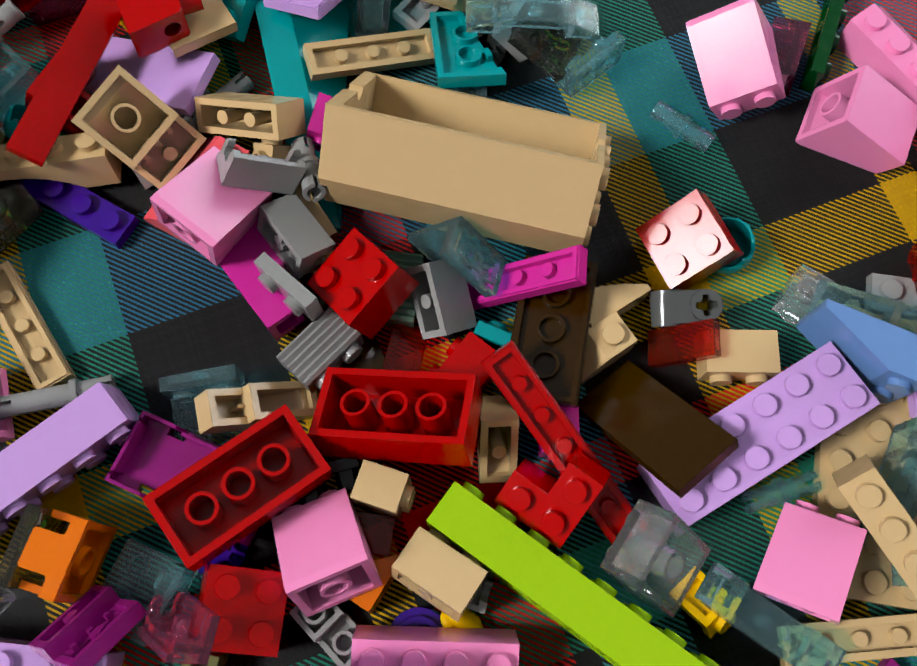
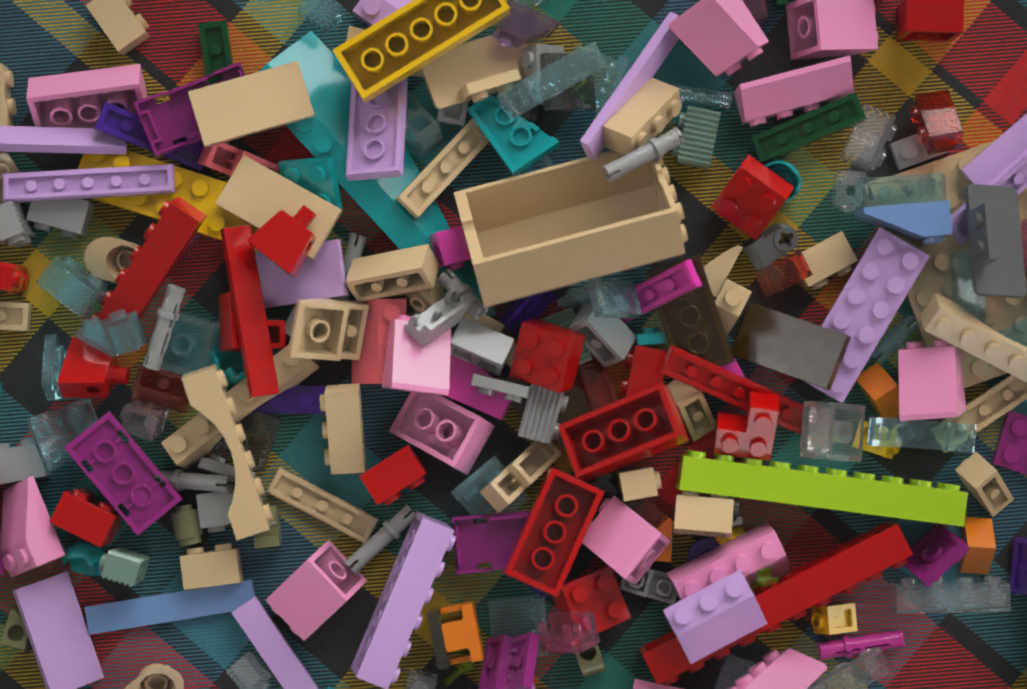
camera: 30 degrees left, 15 degrees up
(40, 607) = (464, 667): none -> clear neon green hand
(96, 252) = (343, 429): none -> tan brick
(112, 326) = (393, 475): none -> red brick
(204, 314) = (442, 429): none -> bright pink slope
(383, 229) = (524, 310): none -> dark purple plate
(605, 119) = (651, 150): none -> light grey pin
(607, 99) = (642, 116): none -> tan brick
(608, 68) = (638, 75): none -> lavender tile
(656, 160) = (699, 135): none -> sand green brick
(737, 543) = (880, 390): none -> orange slope
(792, 158) = (794, 91): none -> bright pink slope
(793, 206) = (809, 128): none -> dark green plate
(851, 250) = (868, 138): none -> clear brick

